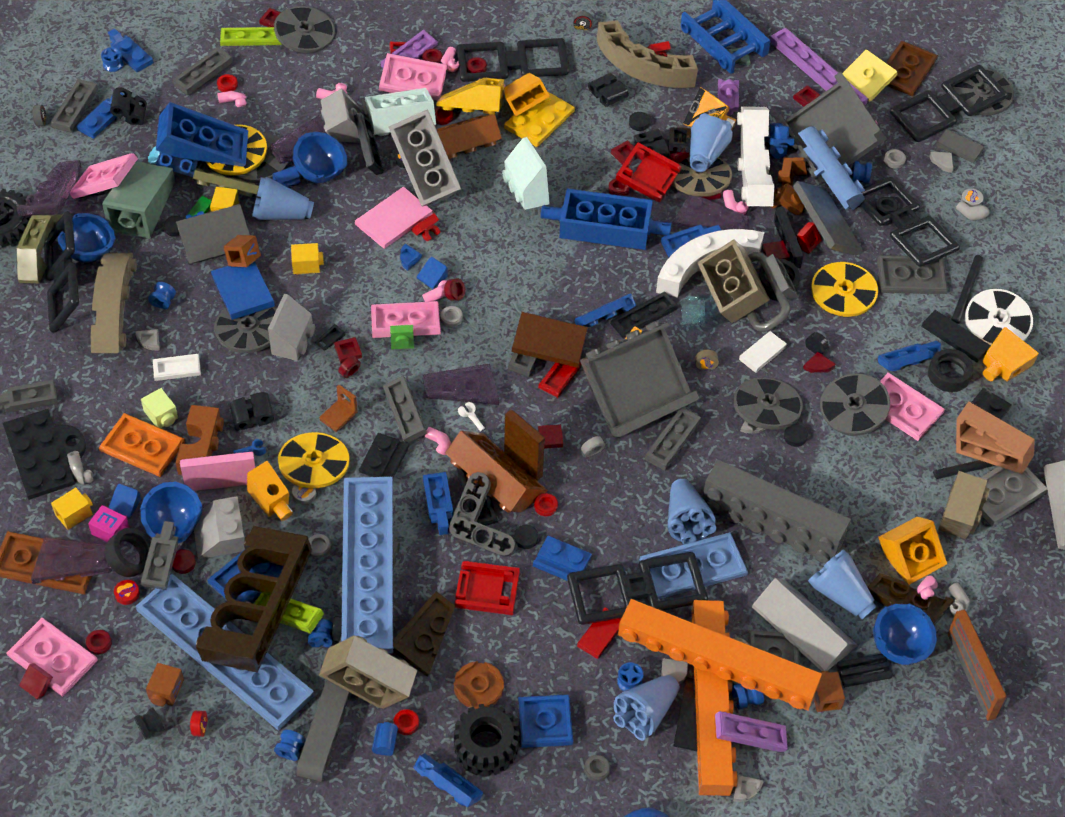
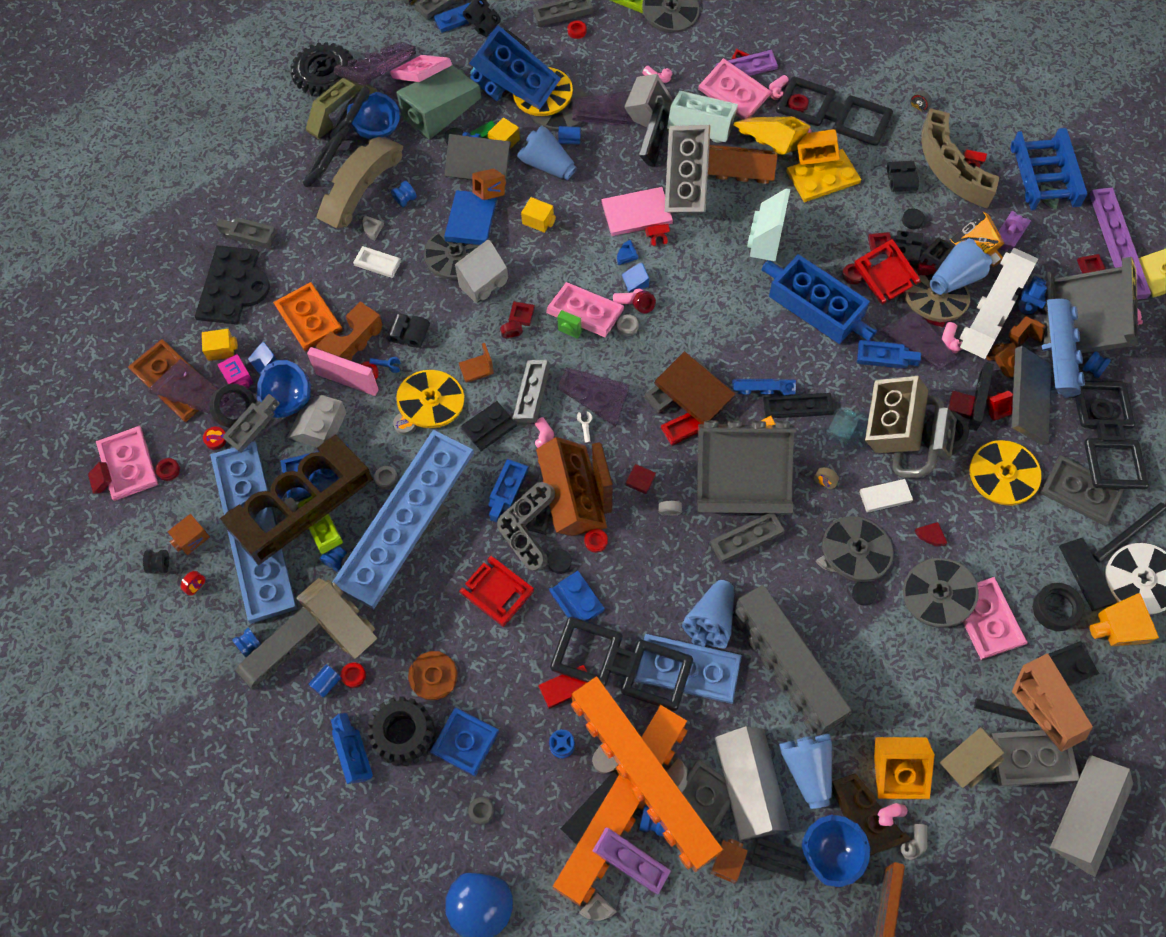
camera: 35 degrees right, 10 degrees up
(77, 468) = (246, 313): light grey arm -> none
(159, 409) = (338, 292): yellowish green brick -> none
(184, 561) = (273, 434): dark red tile -> none
(231, 96) = (574, 43): bright pink arm -> none
(246, 188) = (511, 111): olive wing -> none
(257, 483) = (372, 395): light orange torso -> none
(319, 157) = (603, 128): blue cylinder -> none
(330, 336) = (516, 294): black piece -> none
(424, 633) = (417, 603): dark brown wing -> none
(432, 55) = (765, 77): dark red tile -> none
(443, 116) = (737, 137): red tile -> none
(645, 705) = (557, 779): medium blue cone -> none
(684, 264) = (863, 373): white brick -> none
(817, 343) = (942, 513): black tile -> none
(895, 158) = (1141, 366): light grey tile -> none
(908, 355) = (1025, 571): blue hinge -> none

